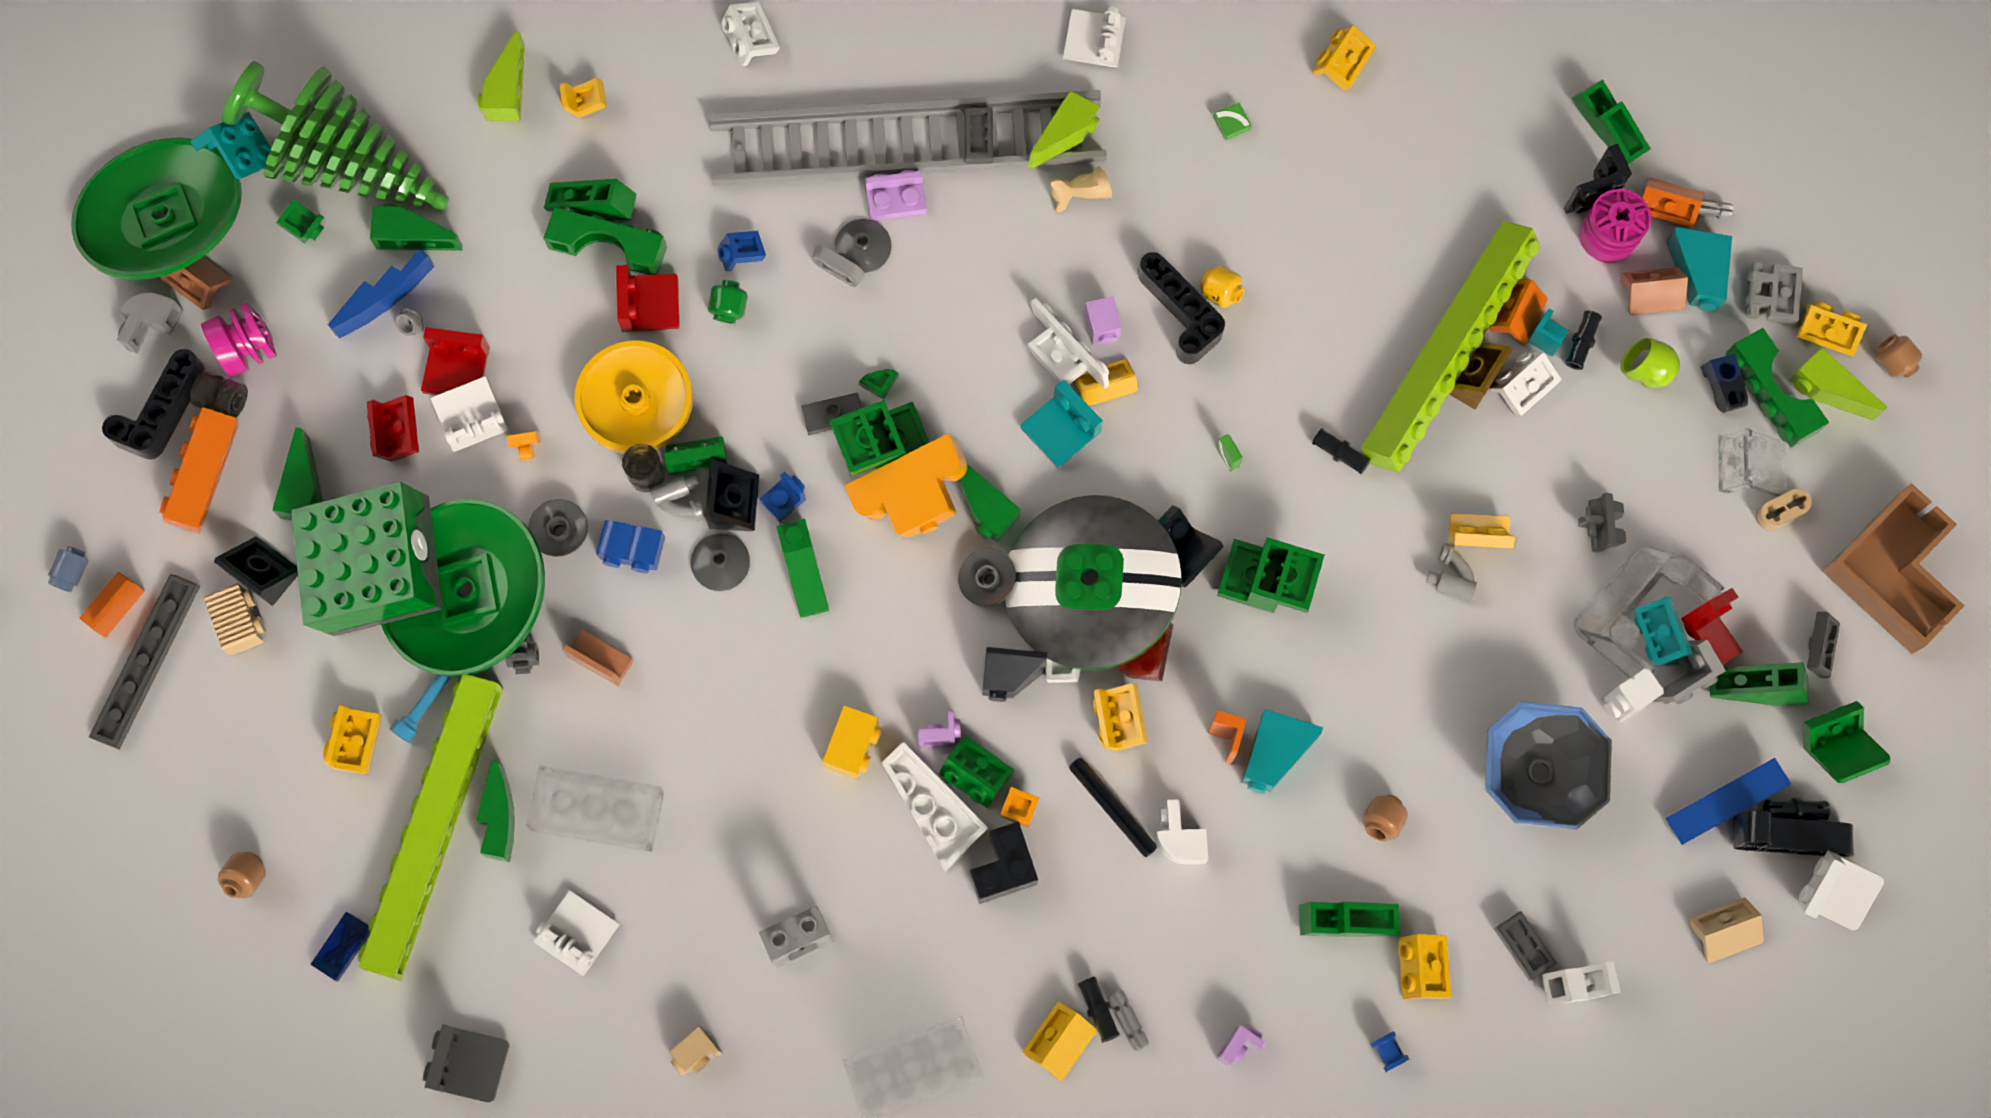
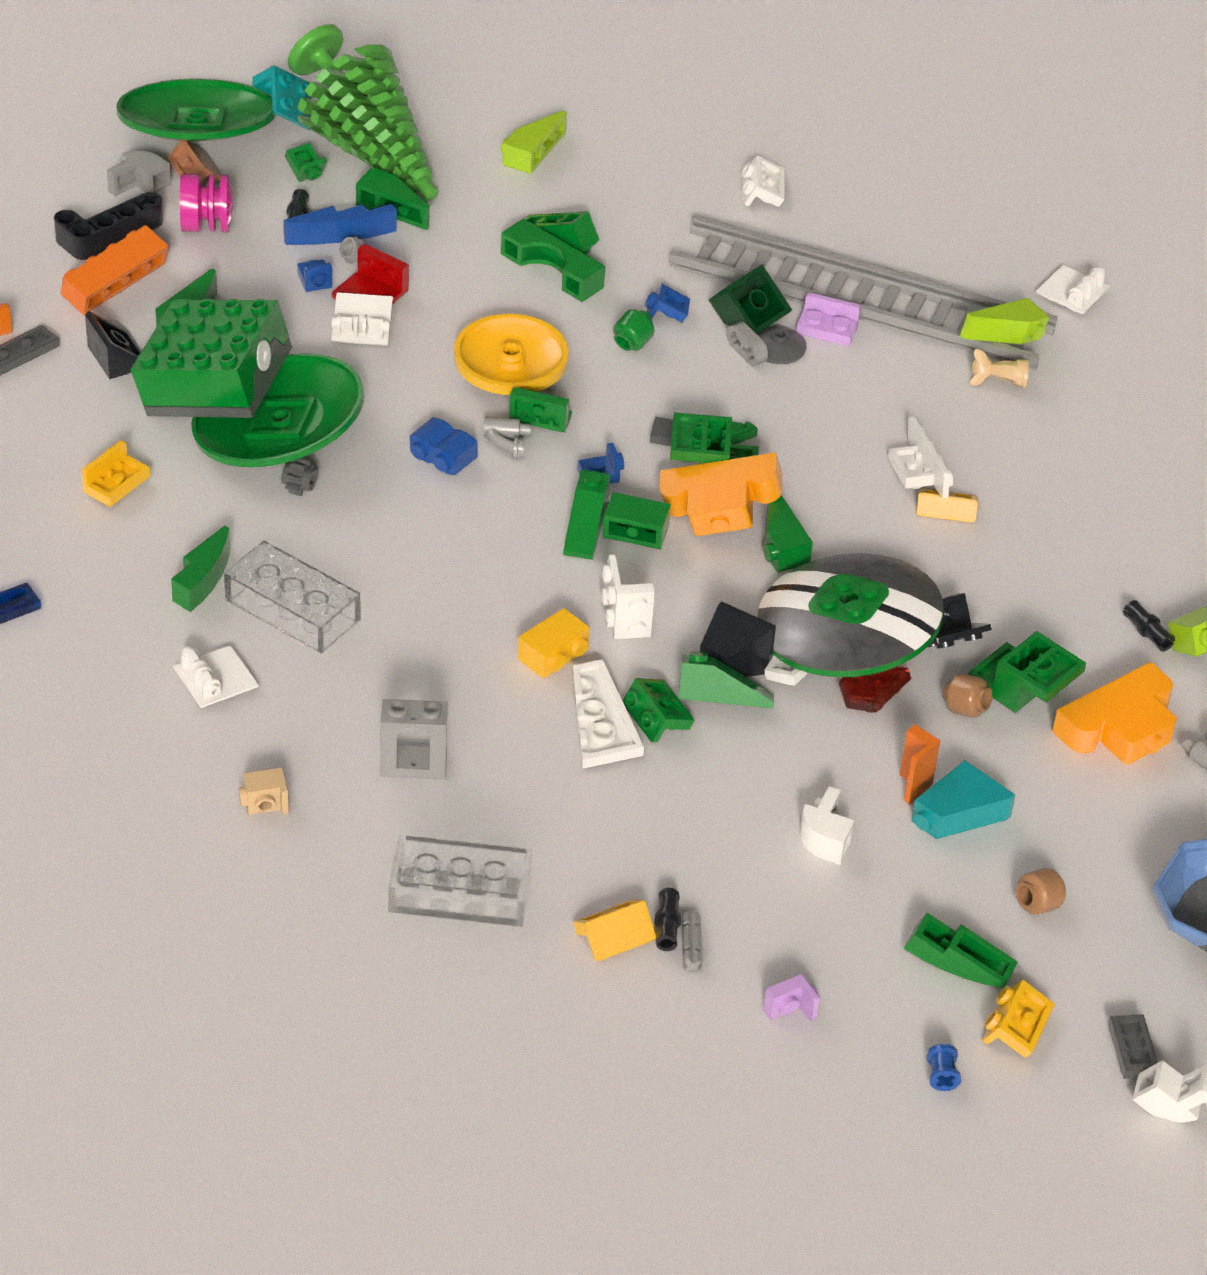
camera: 25 degrees right, 30 degrees down
(219, 394) = (168, 230): clear smoke wheel -> none
(235, 619) = (73, 368): tan brick -> none
(327, 290) = (298, 204): none -> black pin
(391, 371) = (315, 275): none -> blue bracket
(392, 428) = (295, 302): red bracket -> none
(407, 725) = (164, 487): dark azure piece -> none
(430, 828) = (137, 557): lime brick -> none
(466, 1063) = (51, 717): dark grey bracket -> none
(524, 442) = (396, 351): light orange tile -> none
(558, 514) = (388, 412): dark grey dish -> none
(583, 98) = (594, 174): yellow bracket -> none
(599, 657) = (363, 507): nougat panel -> none
(643, 461) = (488, 397): clear smoke wheel -> none
(647, 301) = (560, 307): red bracket -> none
(723, 575) = (515, 492): dark grey dish -> none
(731, 497) = (551, 447): black slope -> none
(817, 211) = (752, 301): none -> dark green slope
(851, 554) = (636, 520): none -> green brick
(904, 679) = (628, 605): none -> white bracket
(935, 736) = (632, 666): lavender bracket -> none
(976, 571) = (753, 581): dark grey dish -> none
(978, 135) = (927, 303): dark grey plate -> none
(1012, 869) = (642, 783): black brick -> none
(1019, 719) = (713, 681): none -> slope
(1019, 807) = (683, 743): light orange tile -> none
(1062, 425) = (893, 513): teal bracket -> none
(1103, 320) = (969, 458): lavender brick -> none
(1113, 807) = (773, 785): black axle -> none
(1120, 717) = (818, 722): yellow bracket -> none
(1175, 303) = (1058, 488): black beam -> none
(1222, 286) = (1096, 476): yellow head -> none
(1229, 452) = (1037, 585): bright green tile -> none
(1229, 620) = (967, 695): none -> medium nougat head
(1232, 121) = (1171, 382): bright green tile -> none
(1367, 575) = (1122, 715): none -> light orange brick

